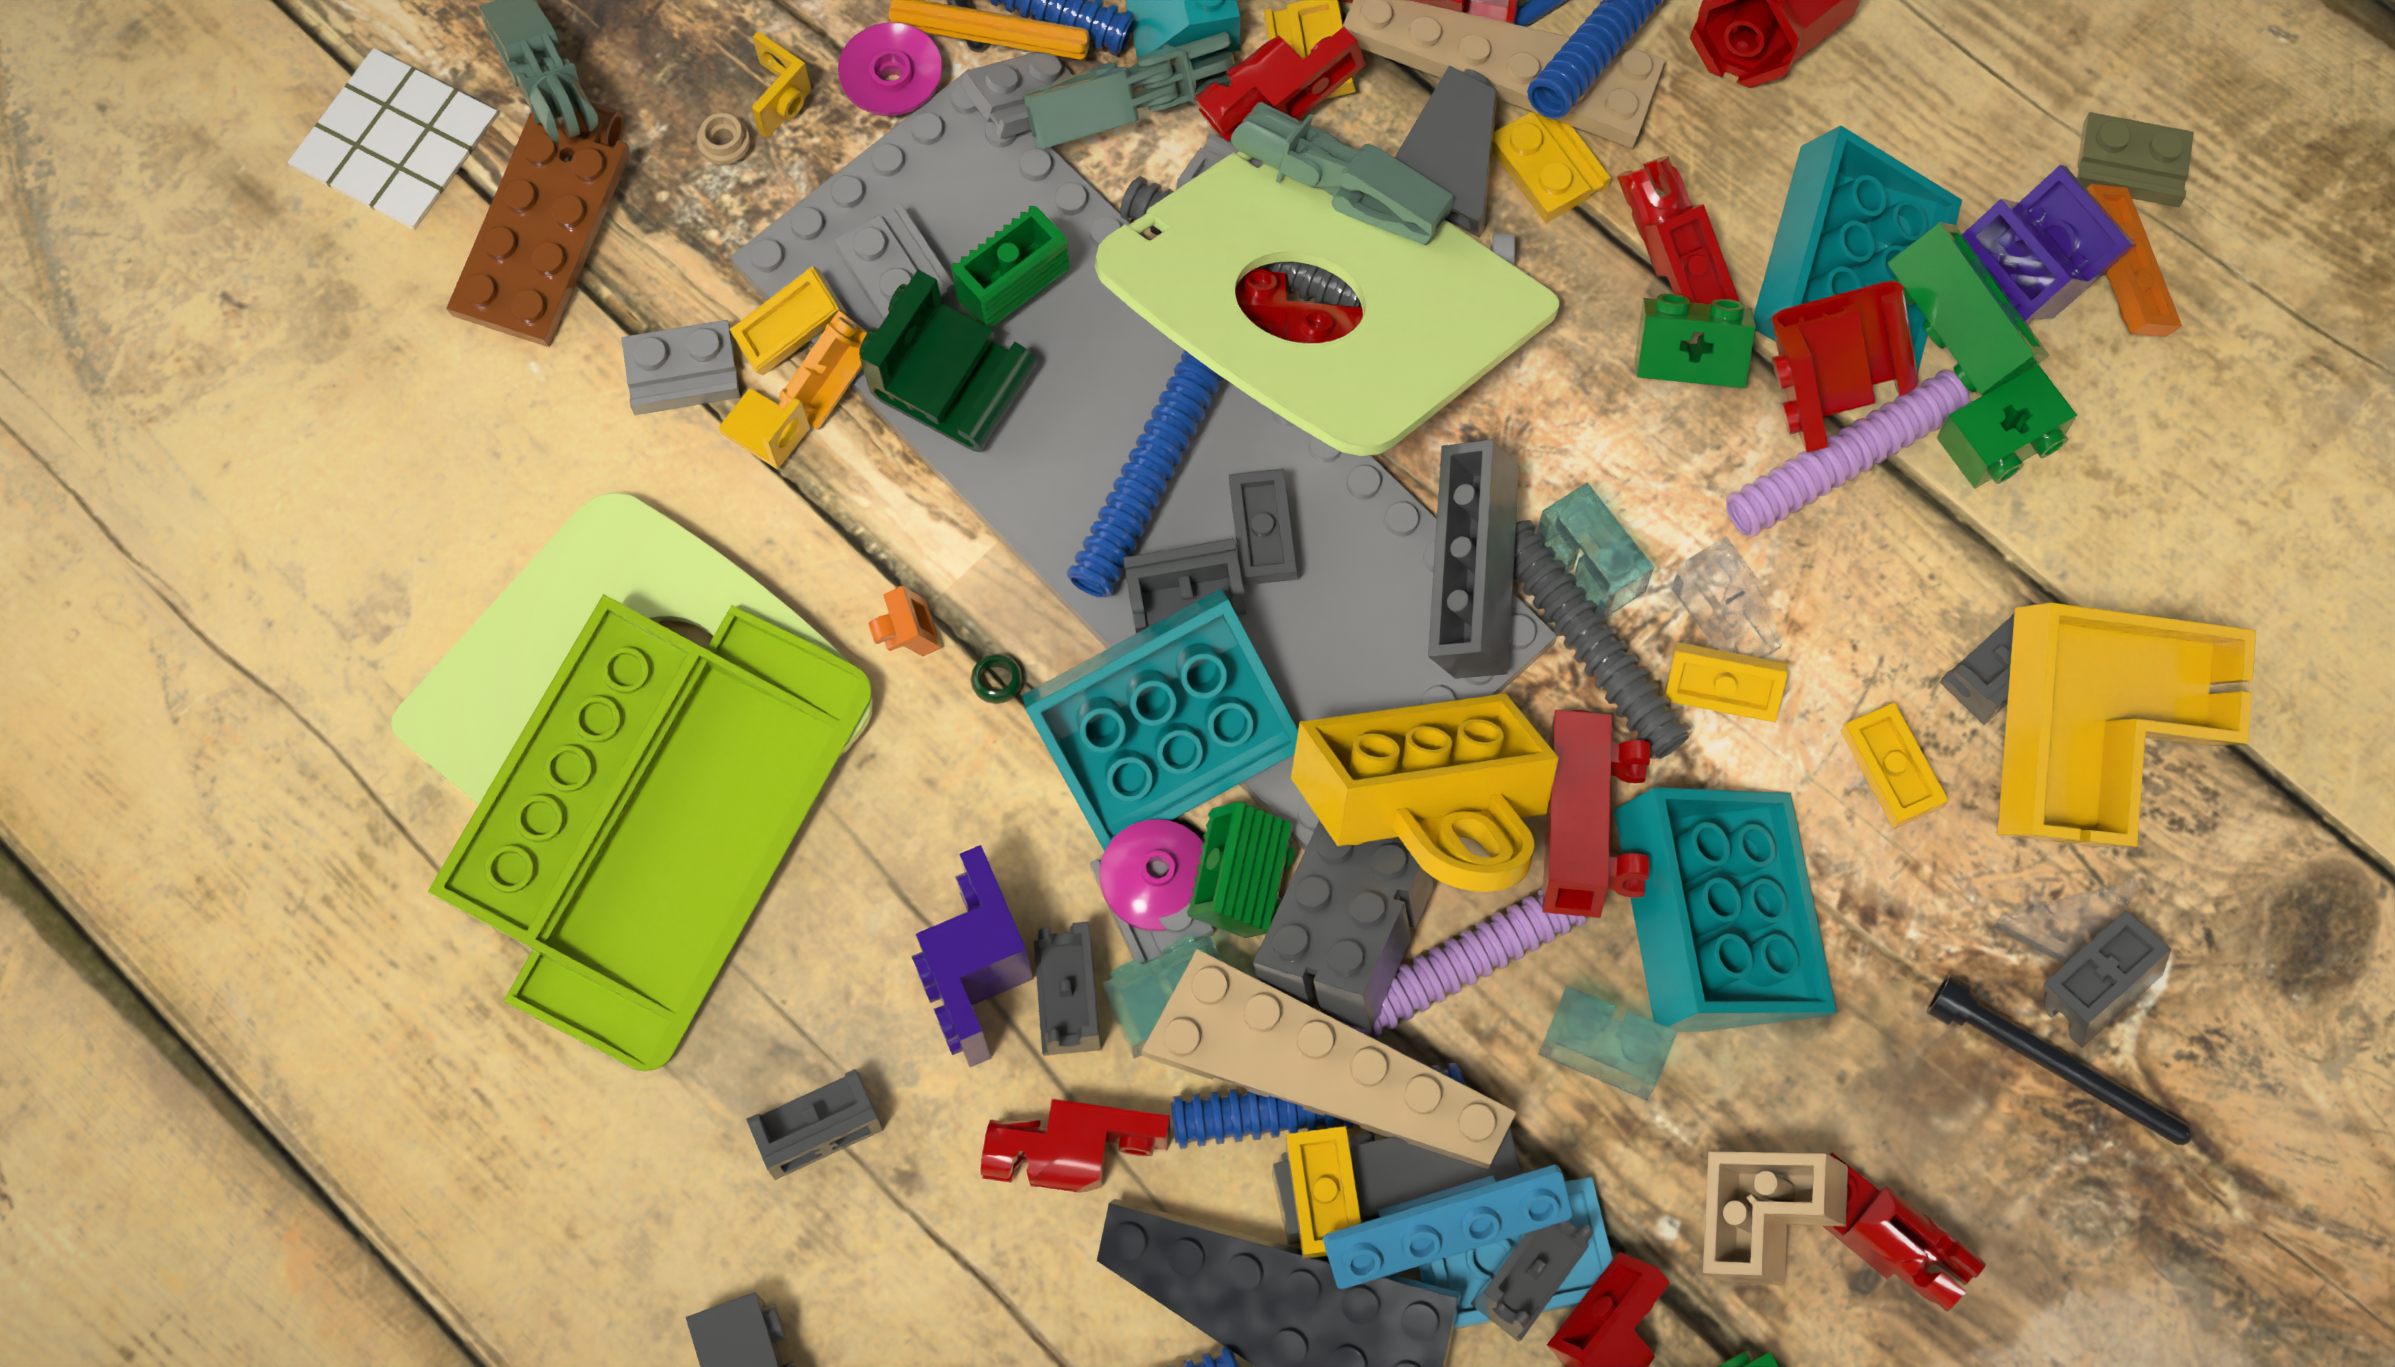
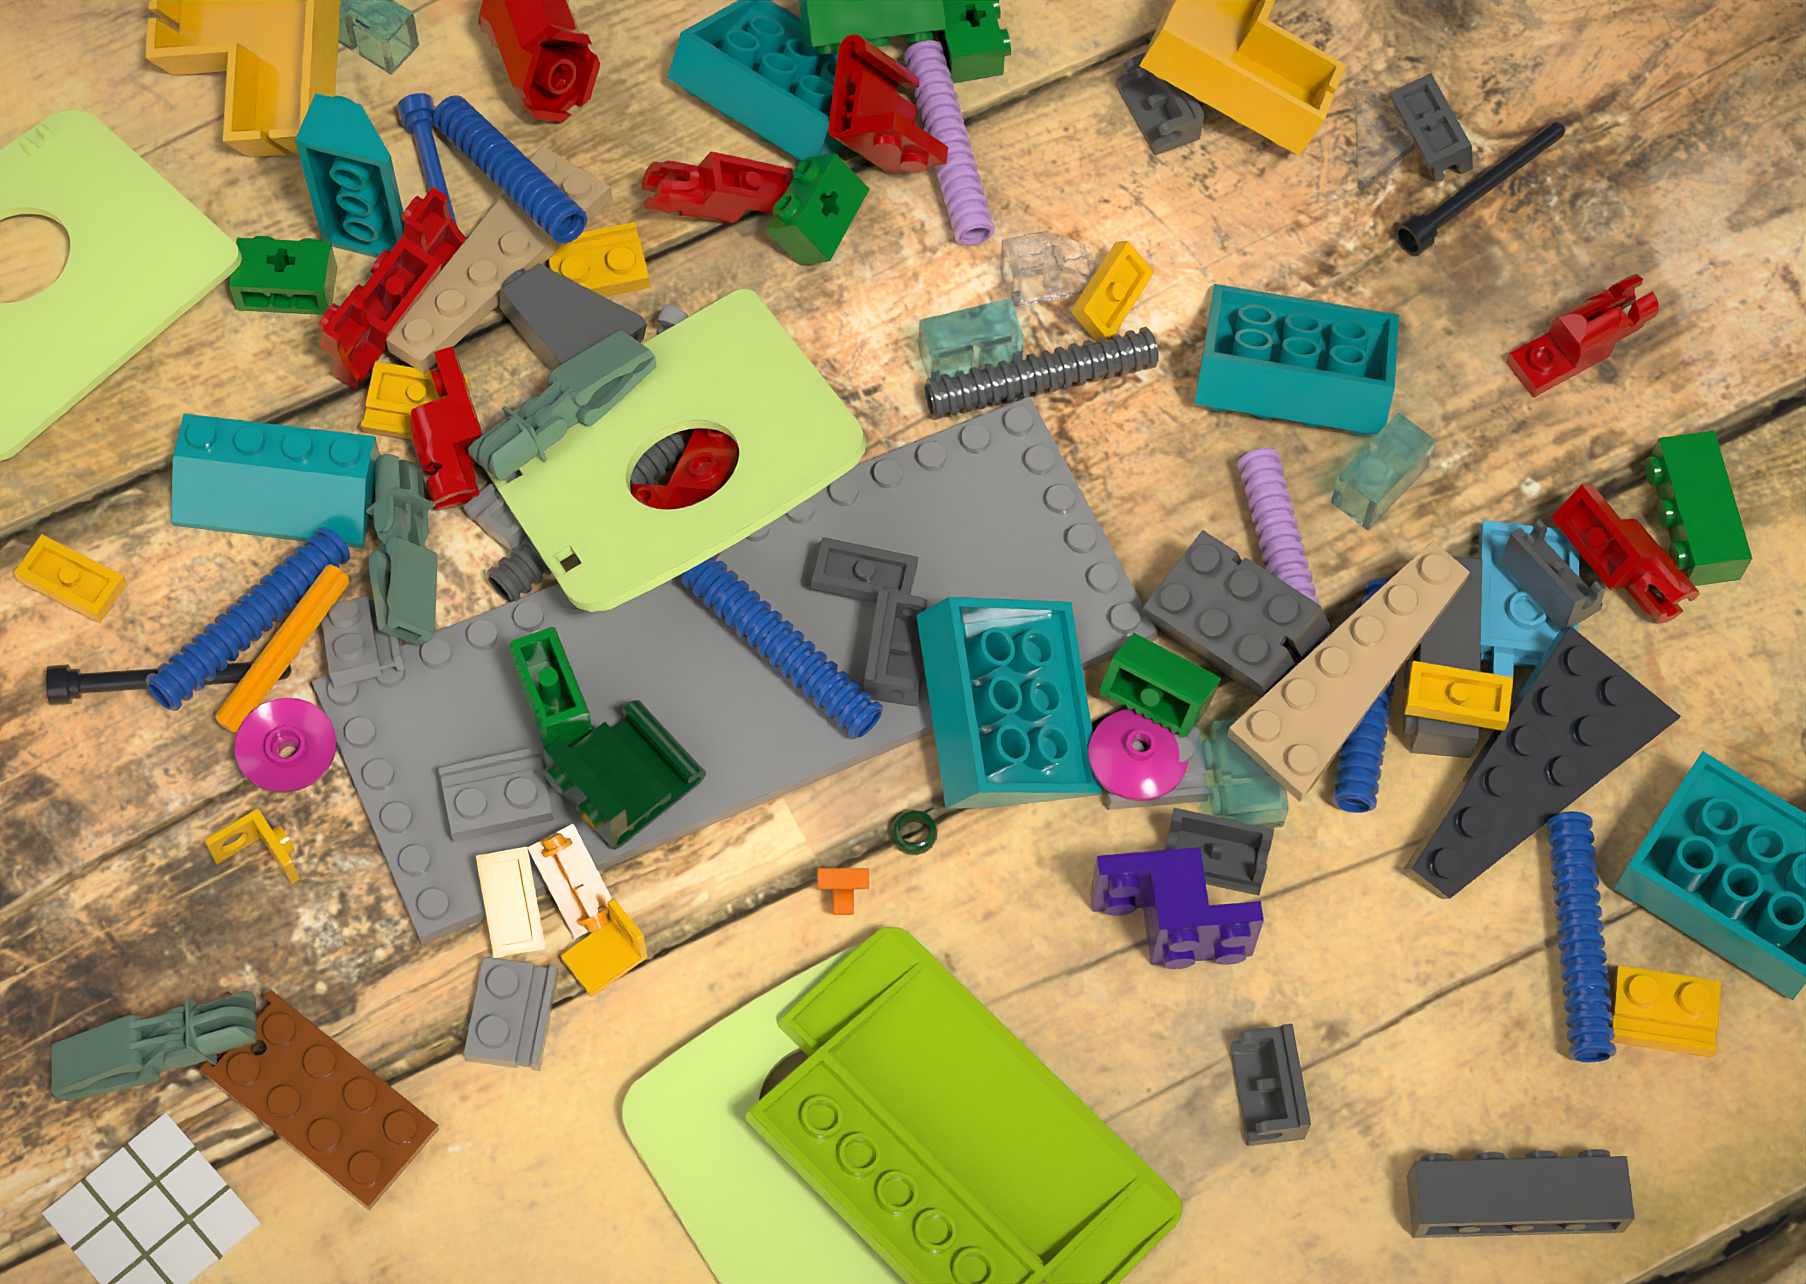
camera: 75 degrees left, 5 degrees down
(719, 127) = (290, 899): tan plate -> none
(1072, 1147) = (1351, 890): red plate -> none
(1429, 781) = (1146, 501): yellow brick -> none
(1447, 1225) = (1509, 612): dark azure bracket -> none
(1474, 560) = (961, 418): dark grey brick -> none
(1579, 816) = (1195, 421): red brick -> none
(1755, 1199) = (1537, 404): tan brick -> none
(1894, 765) = (1218, 204): yellow plate -> none

